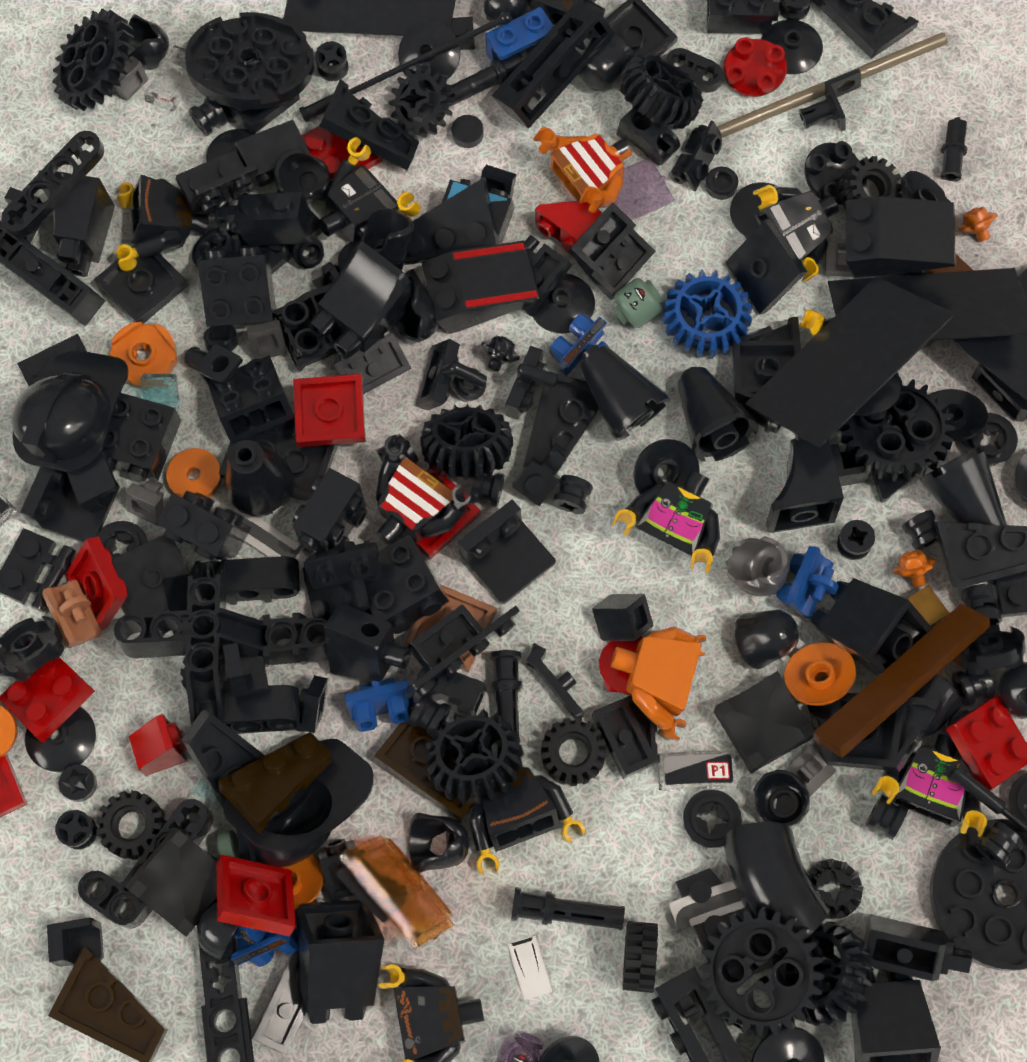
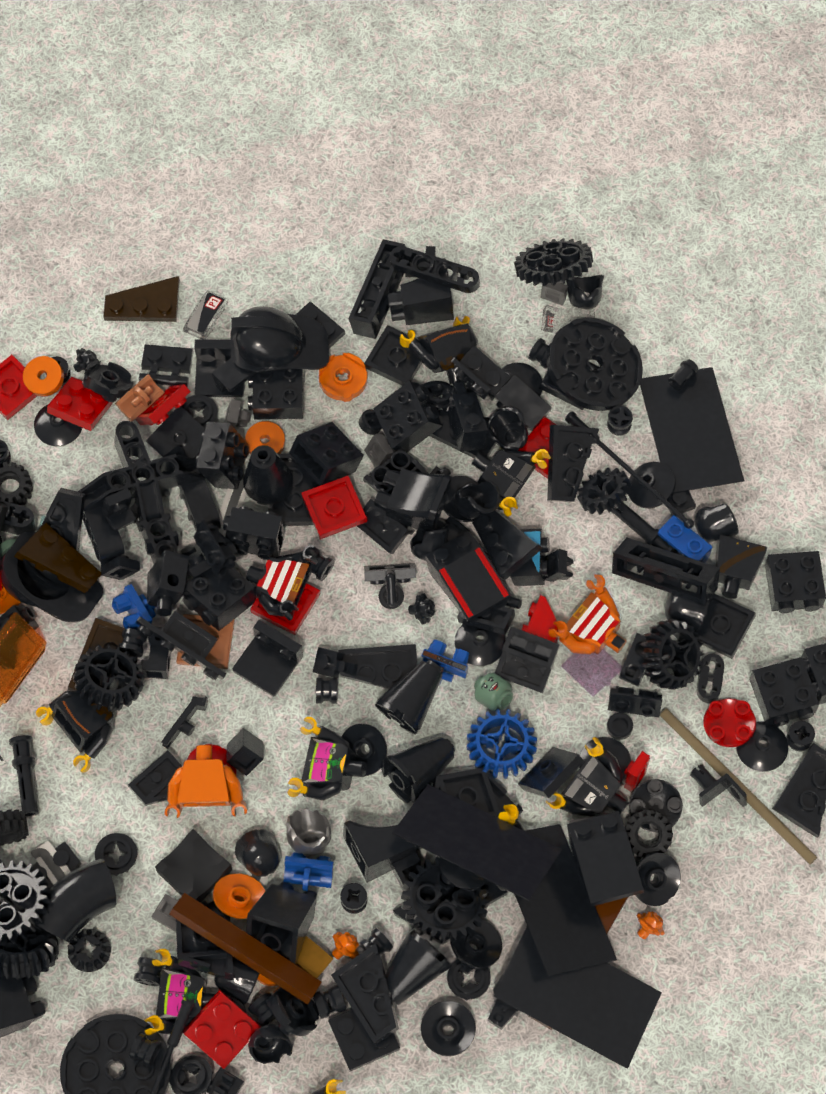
camera: 70 degrees right, 5 degrees down
(77, 783) = (29, 444): black tile -> none
(158, 745) = (63, 477): red slope -> none
(161, 389) = (317, 397): clear light blue tile -> none
(214, 365) = (345, 421): black bracket -> none
(313, 258) = (454, 460): black plate -> none
(423, 830) = (51, 668): black hair -> none
(466, 442) = (344, 601): black gear -> none
(467, 131) = (597, 532): black tile -> none
(489, 488) = (313, 631): black wheel -> none
(506, 686) = (170, 690): black pin -> none
(528, 372) = (402, 632): black plate -> none
(573, 730) = (136, 732): black tyre -> none
(696, 770) = (147, 833): slope -> none
(791, 797) = (142, 886): black hair -> none
(795, 169) = (636, 771): none -> red plate
(913, 949) = (56, 1008): black hinge -> none
(954, 150) = (711, 892): black axle -> none

